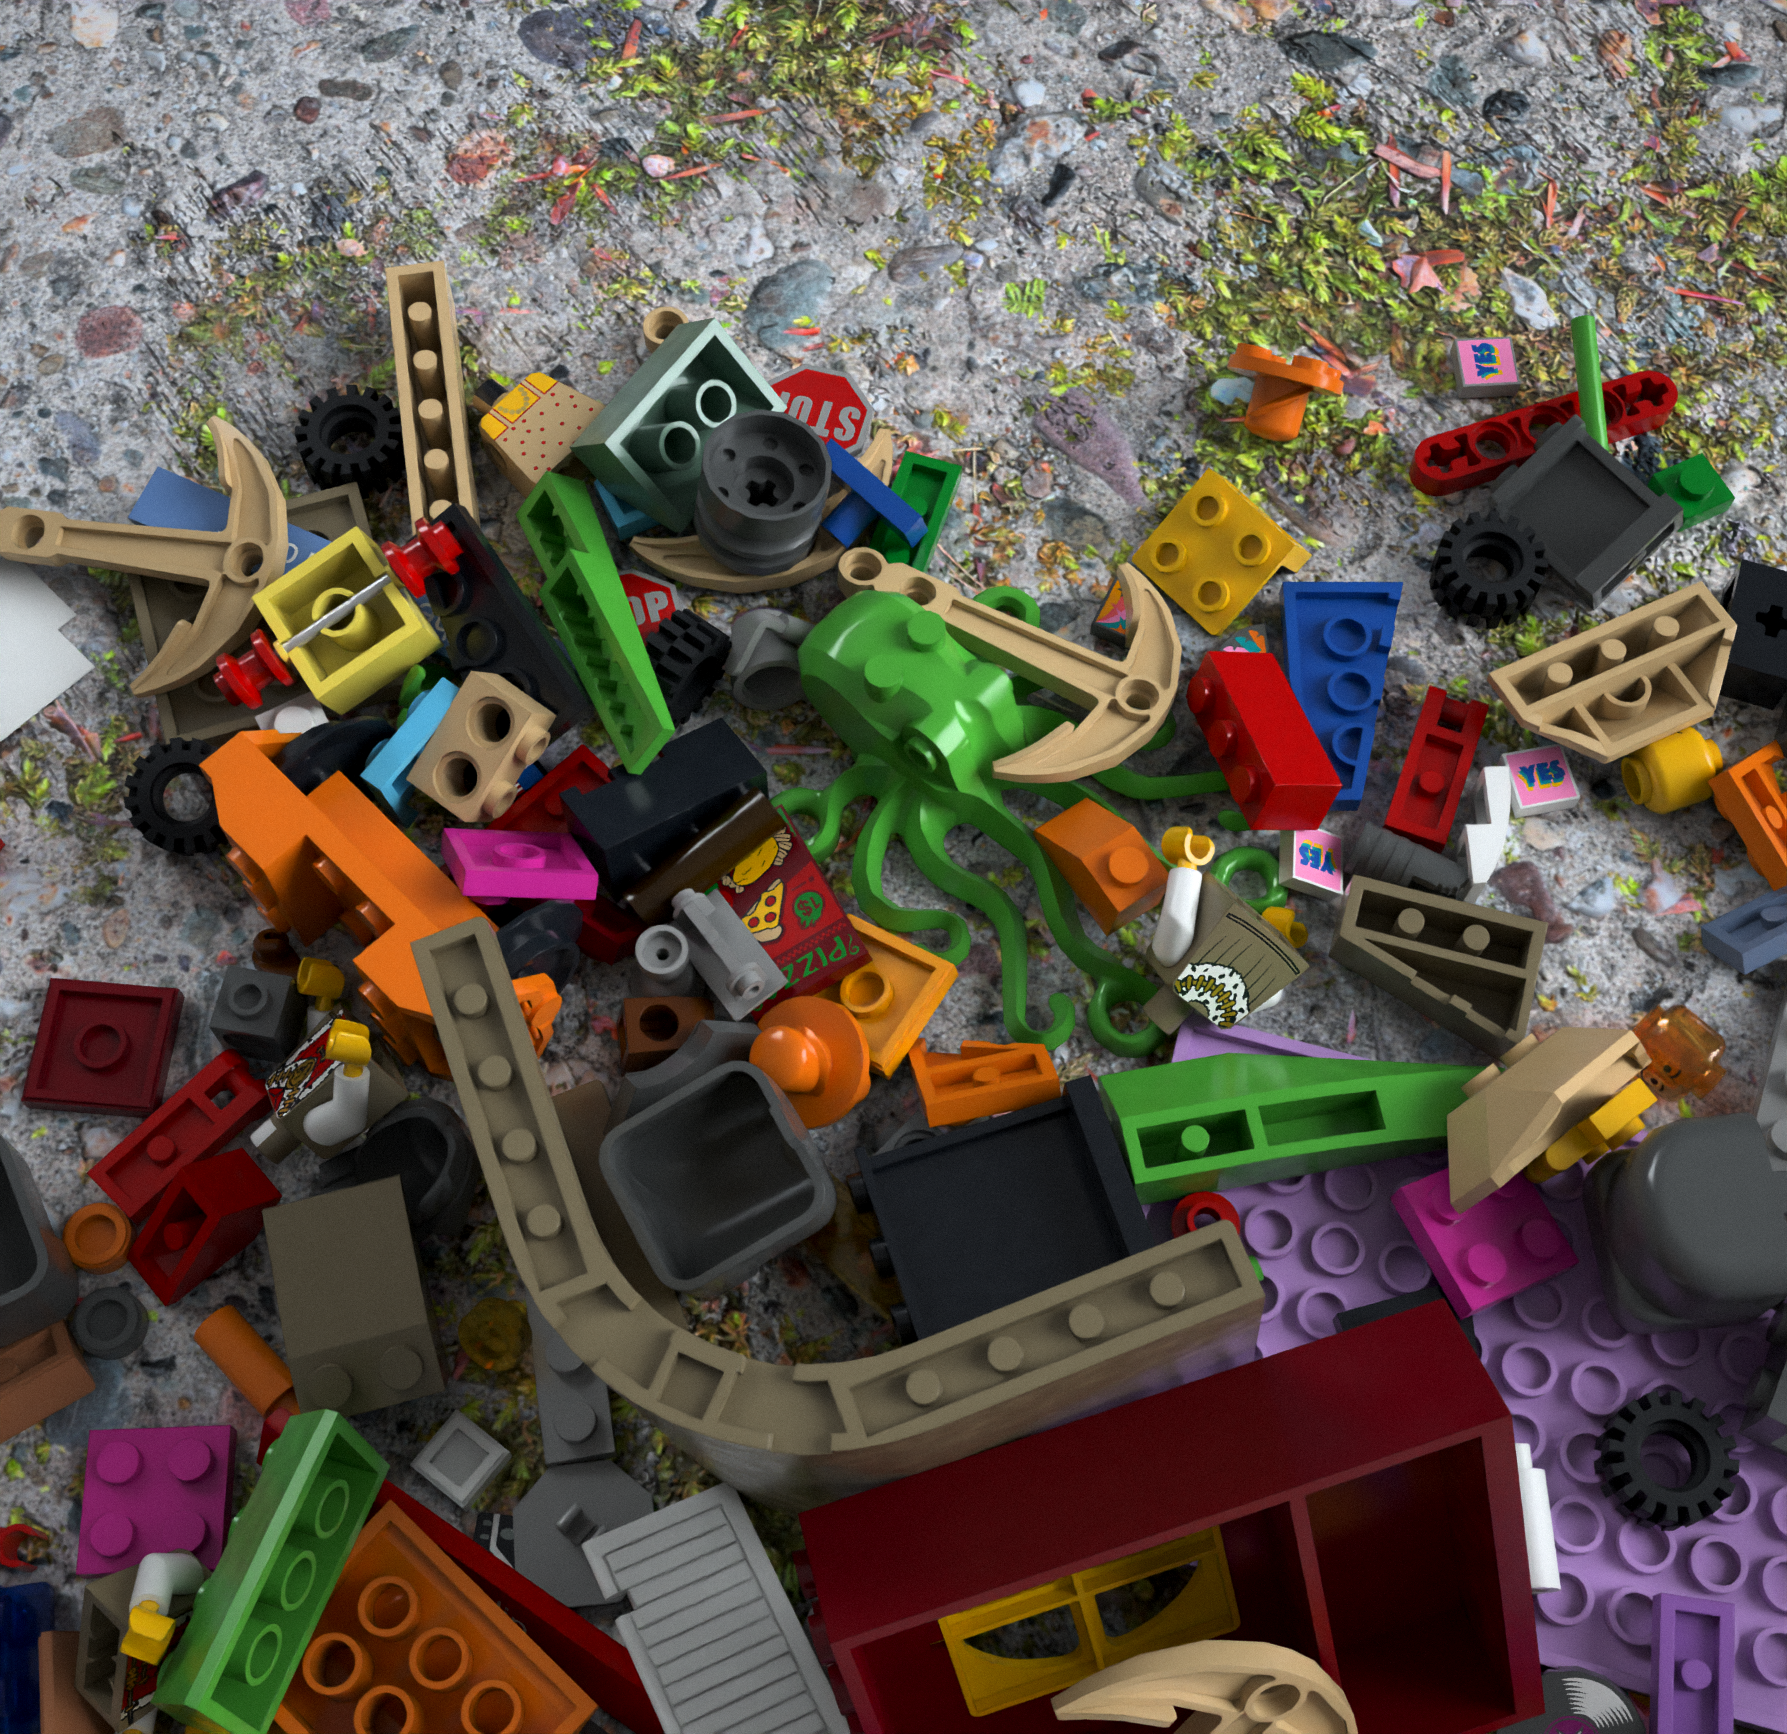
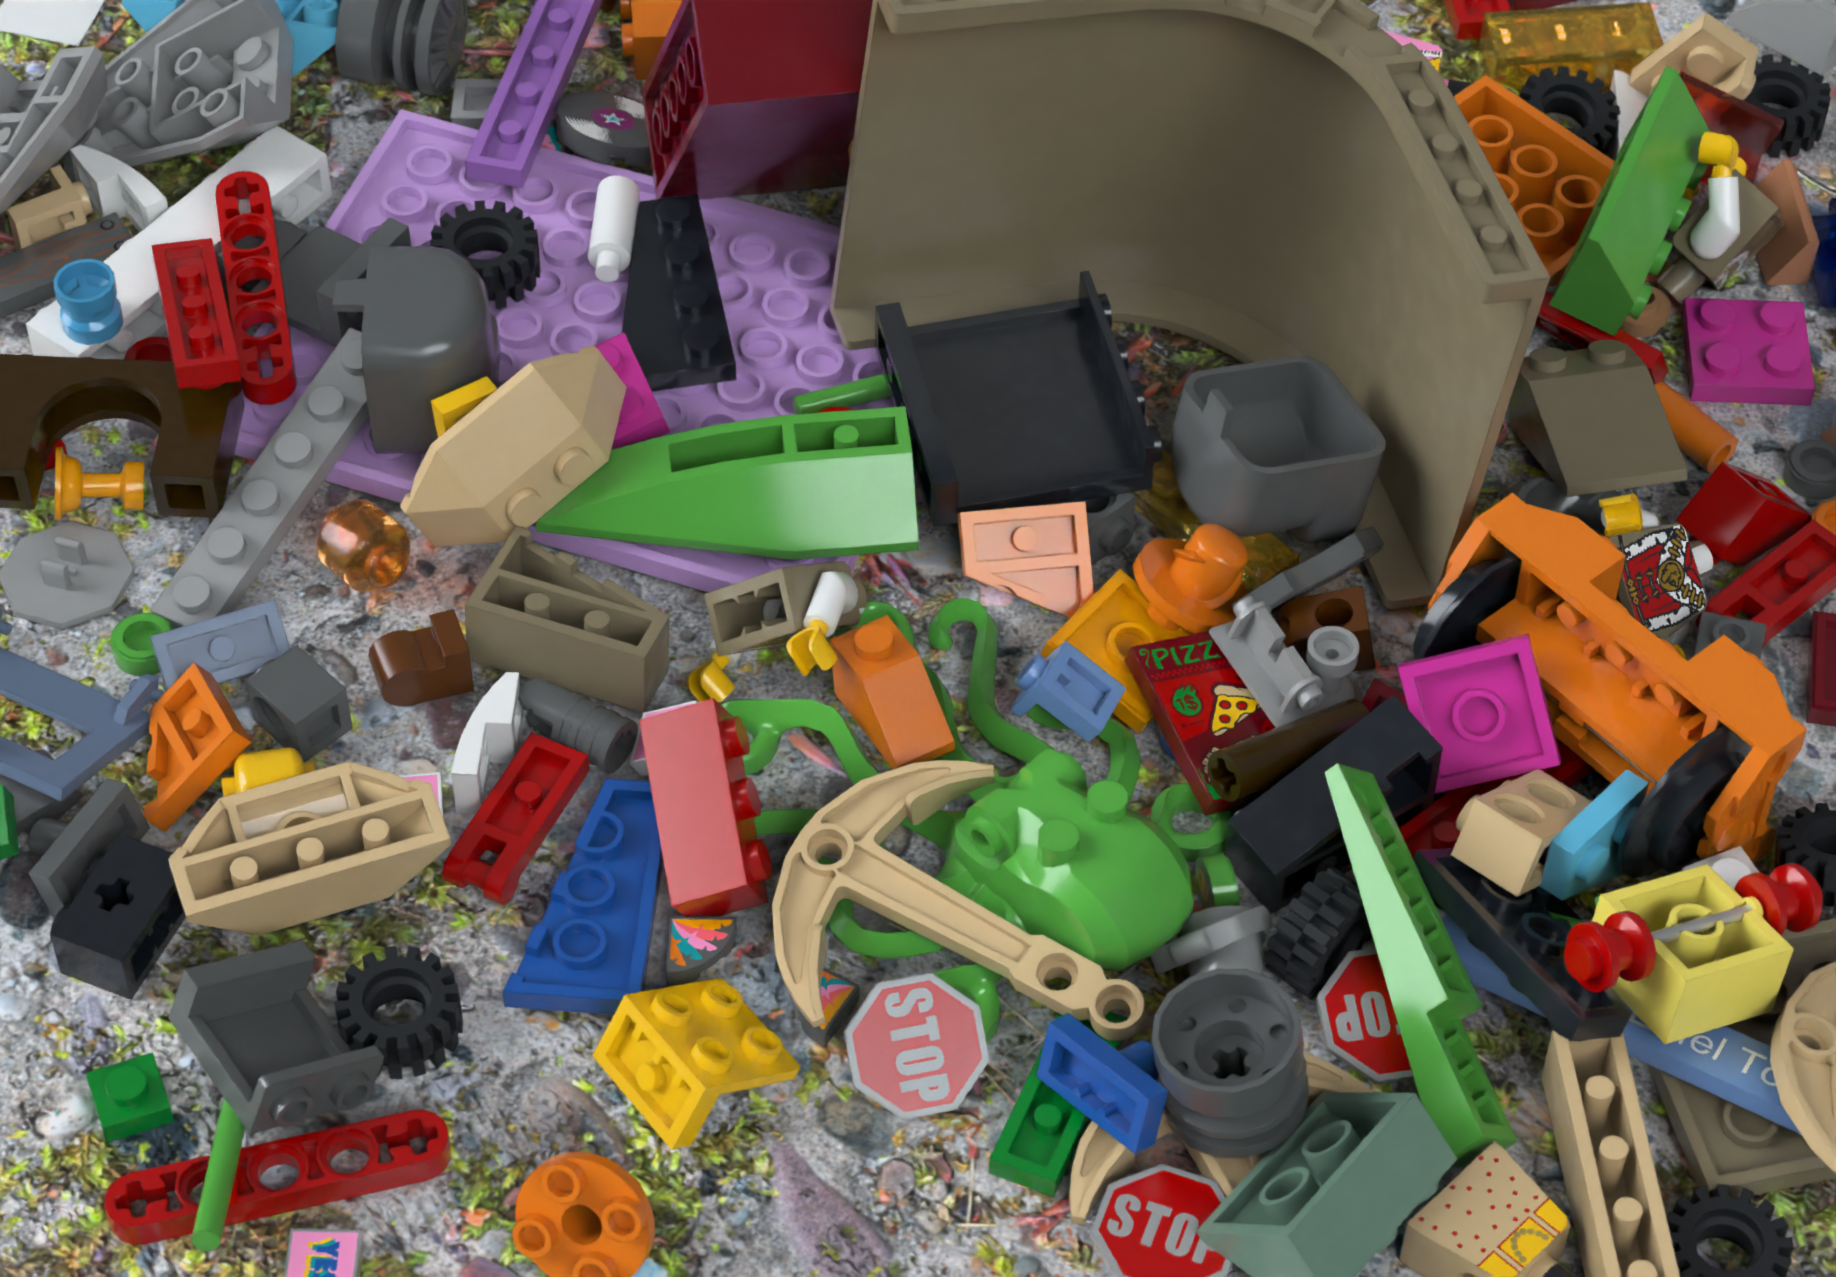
camera: 175 degrees left, 15 degrees down
(774, 736) = (1216, 881): none -> bright green tile
(929, 893) = (1069, 689): none -> medium blue bracket
(1034, 558) = (916, 1046): none -> piece
(1577, 926) = (423, 662): none -> reddish brown leg
(1680, 867) = (299, 703): none -> dark grey brick

